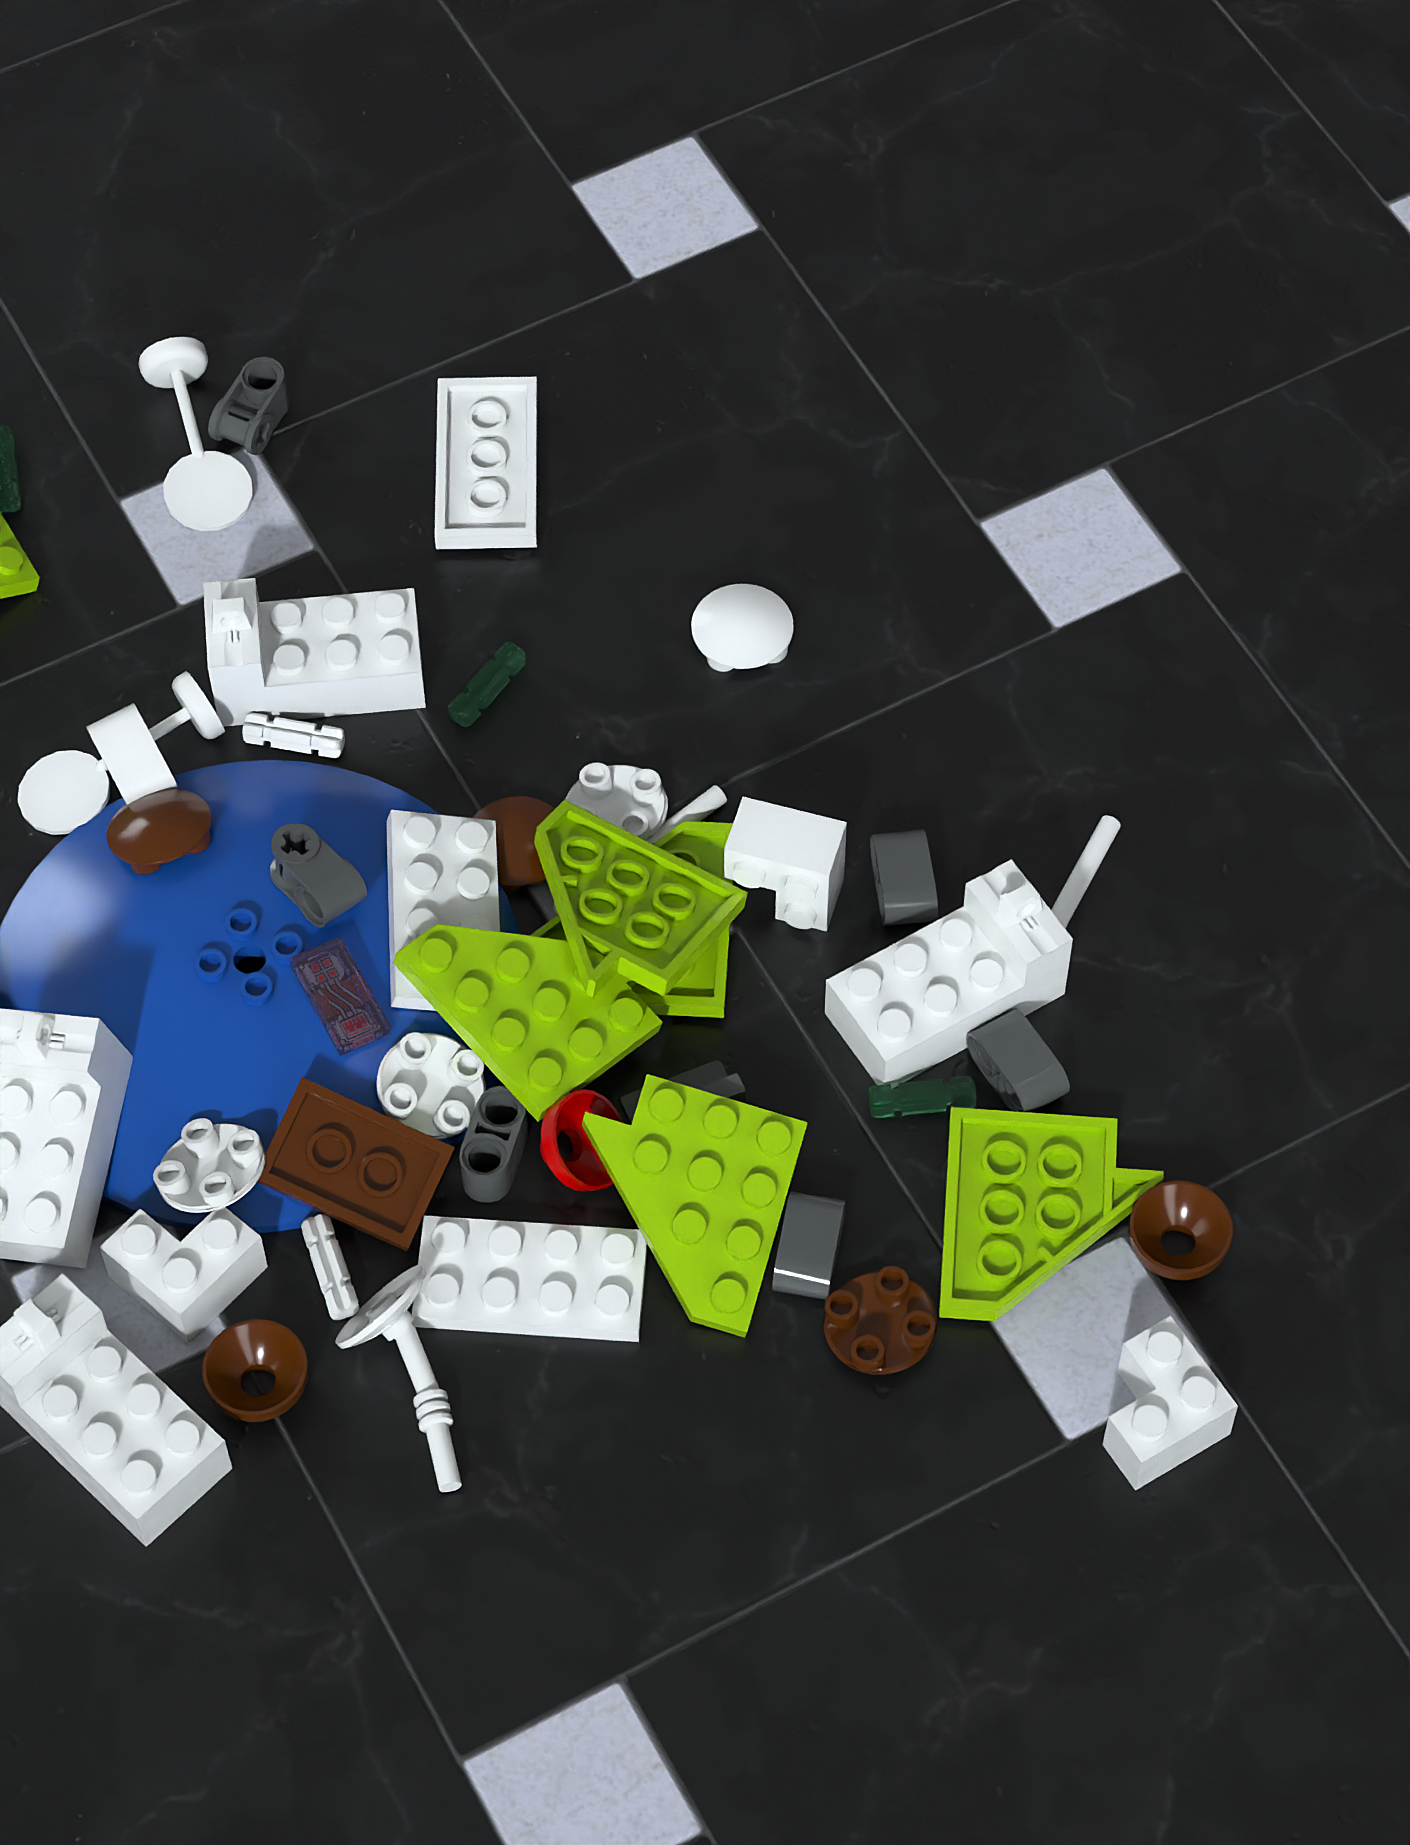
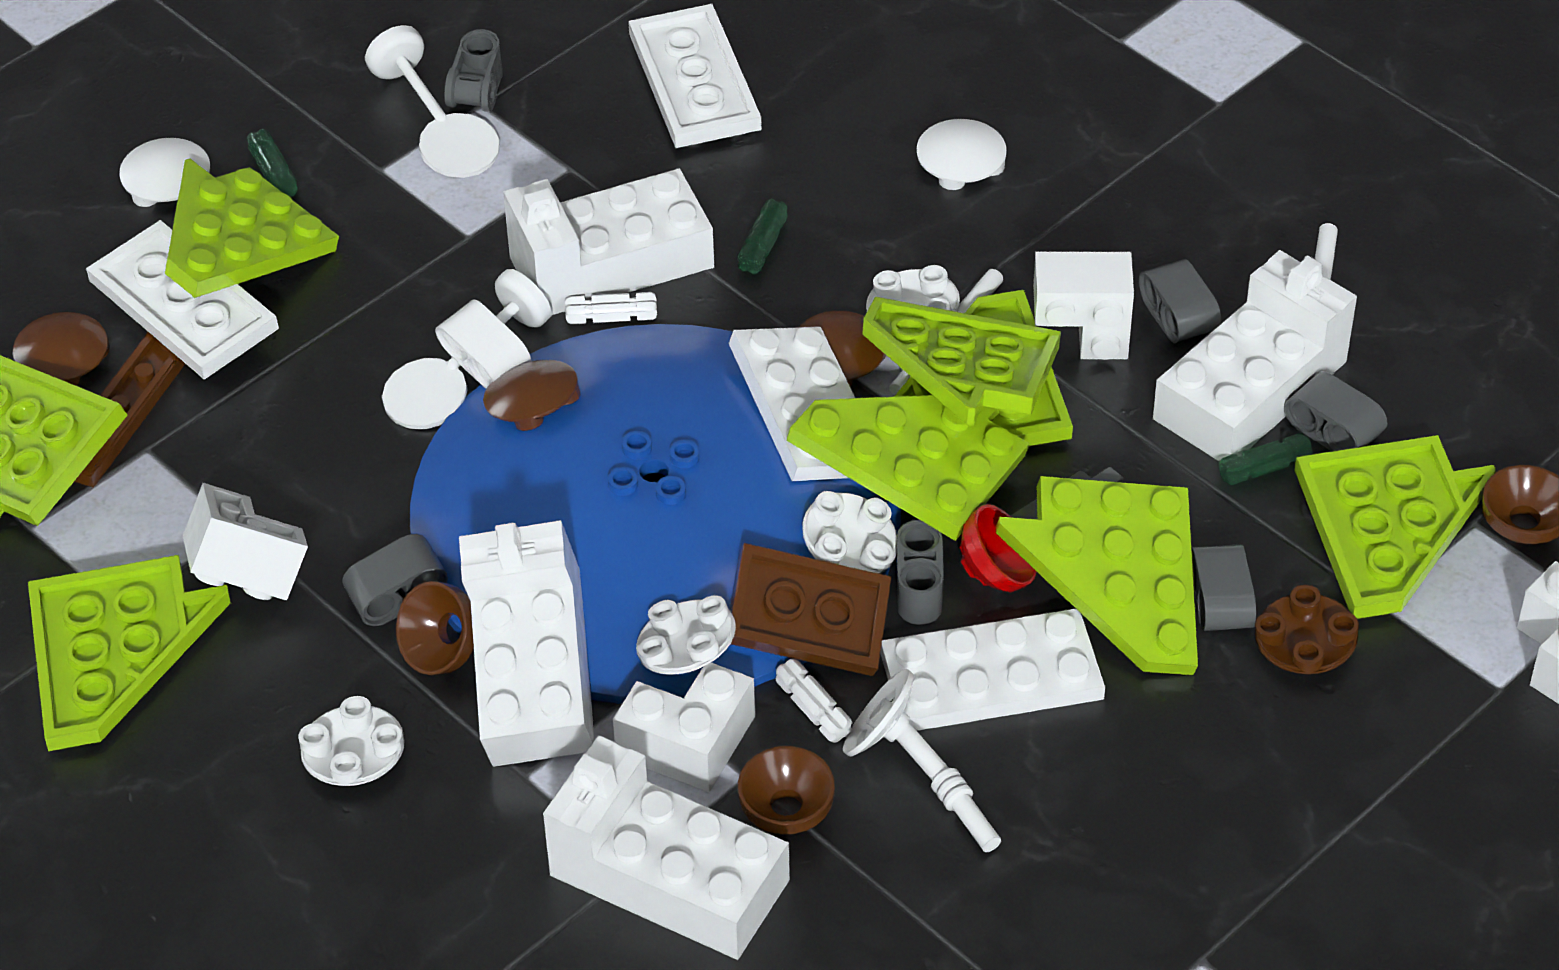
camera: 15 degrees left, 10 degrees down
(313, 874) = (691, 393): dark grey piece -> none
(340, 996) = (747, 479): clear purple tile -> none

